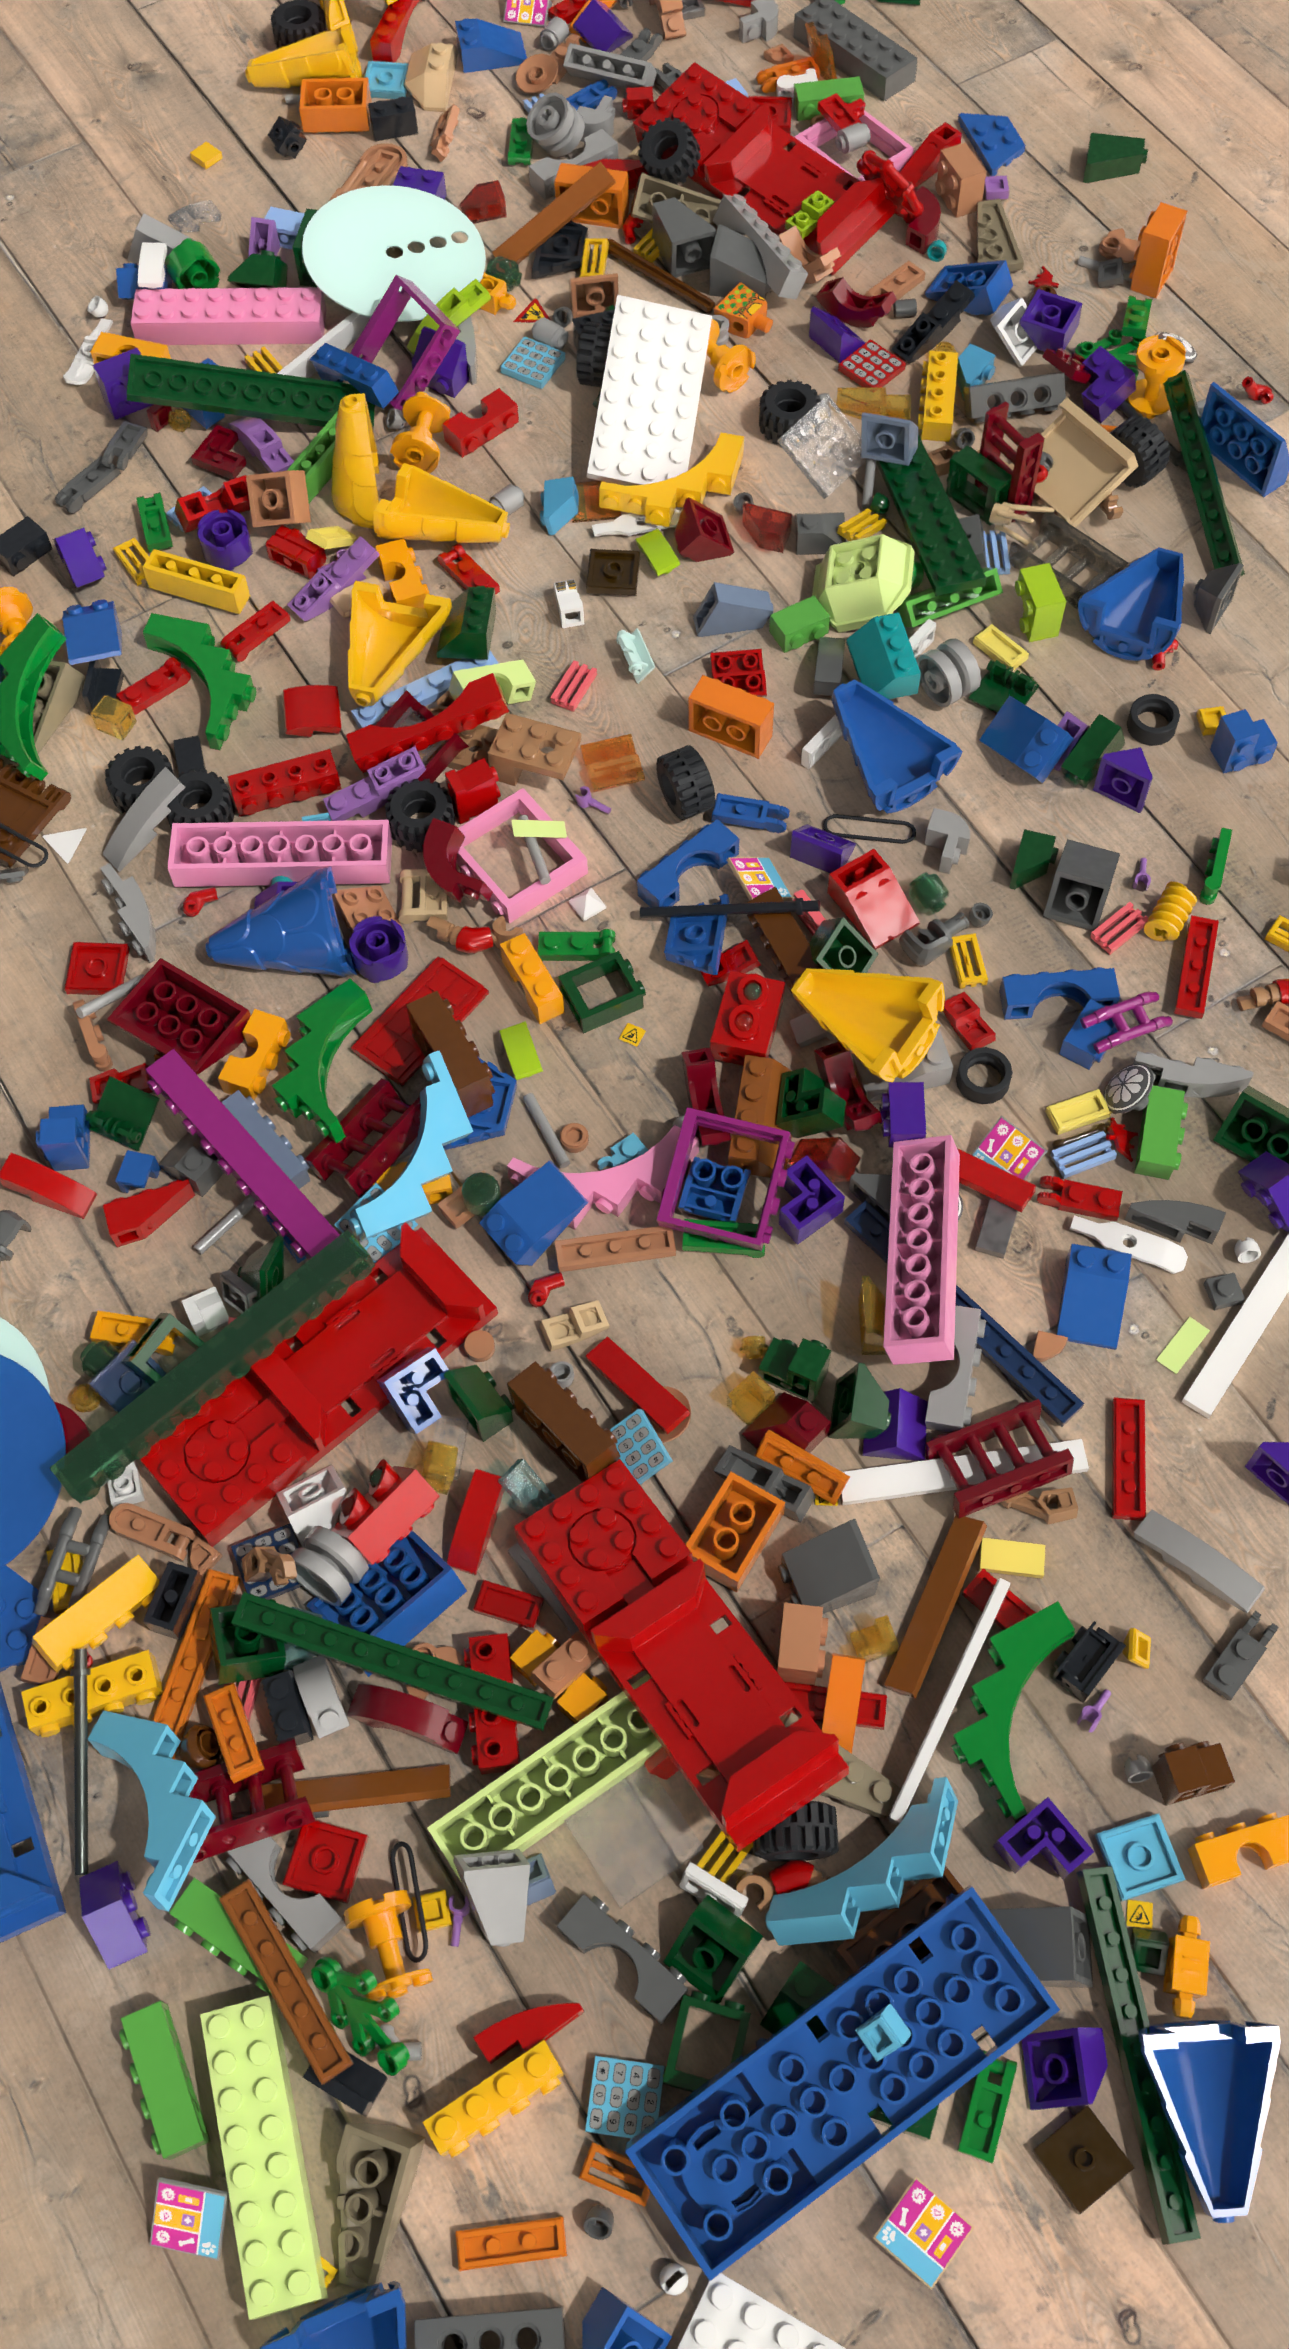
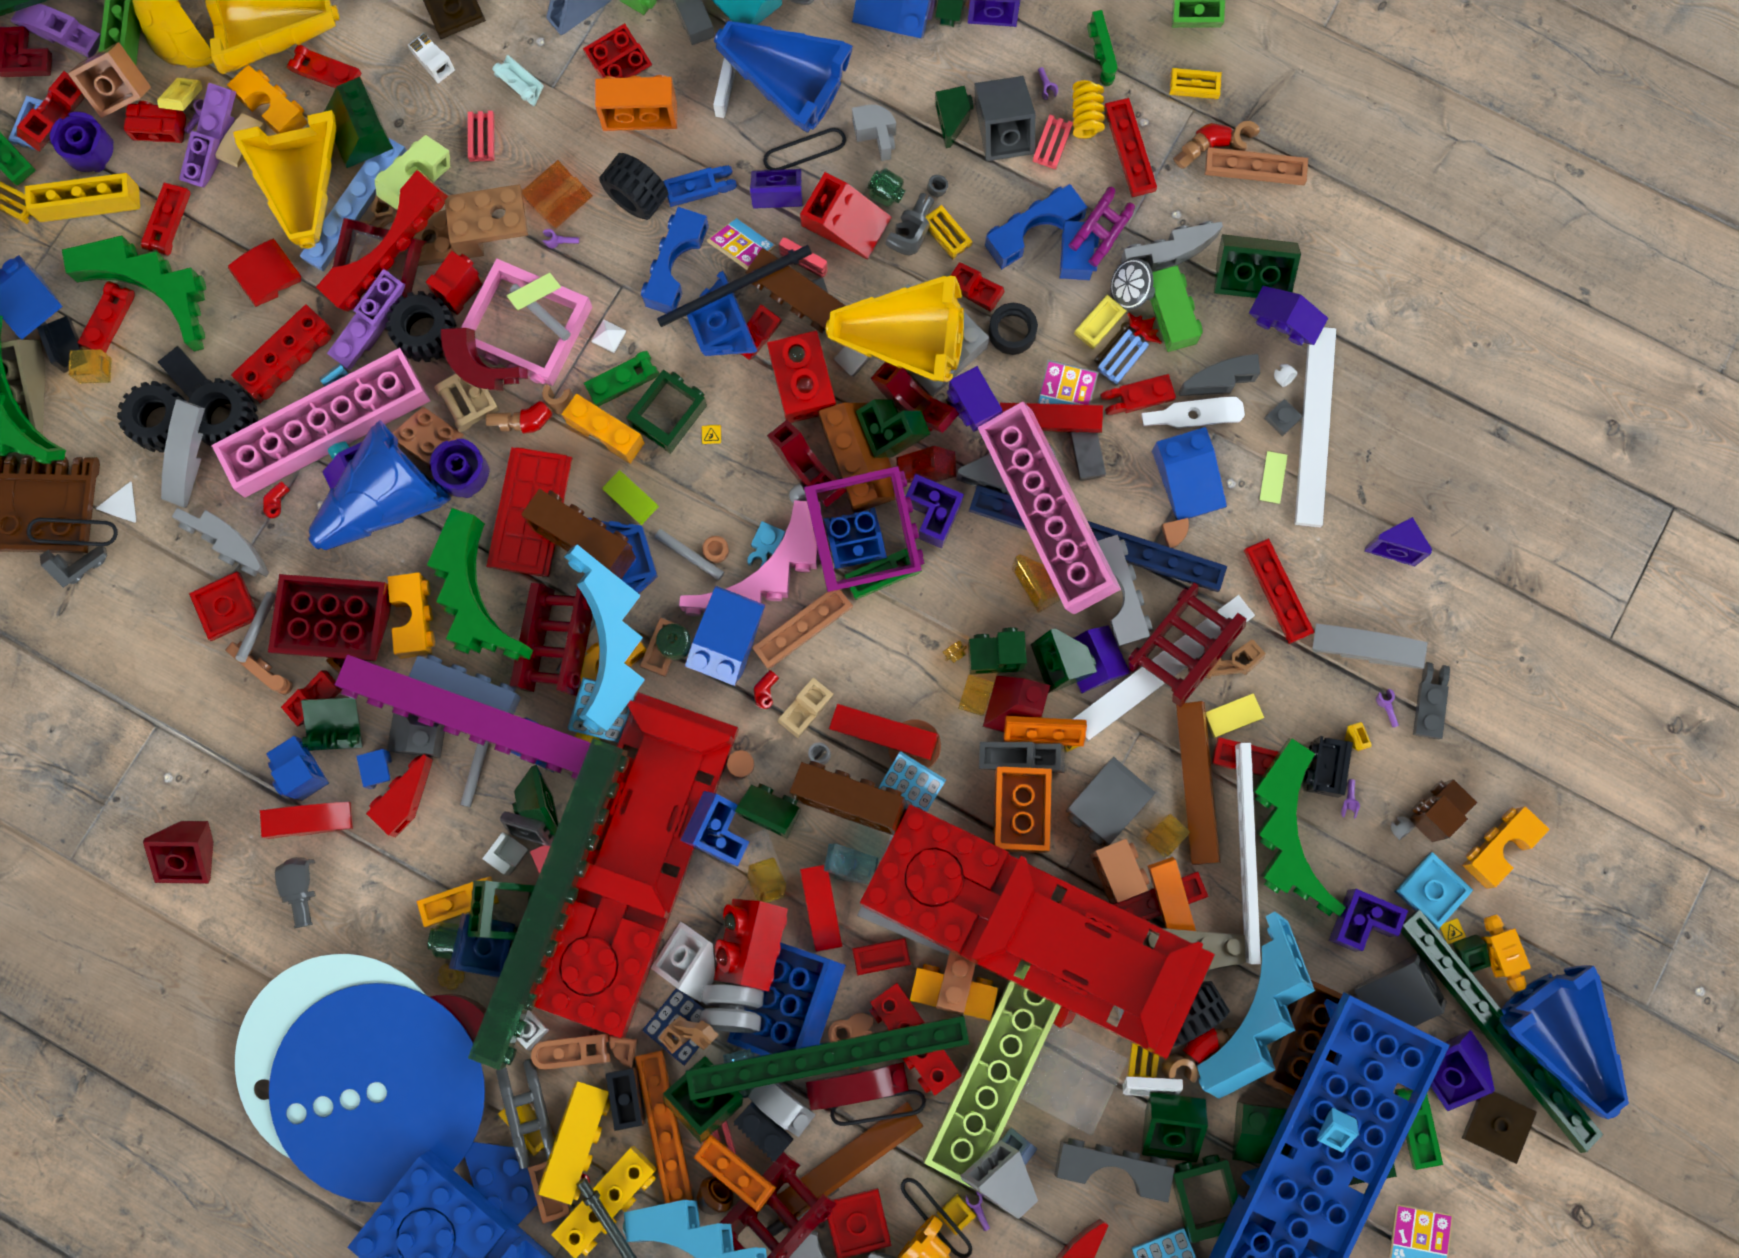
camera: 30 degrees left, 15 degrees up
(412, 1763) = (891, 1116): none -> black piece
(841, 947) = (846, 278): dark green slope -> none
(1188, 1633) = (1387, 704): none -> medium lavender hand

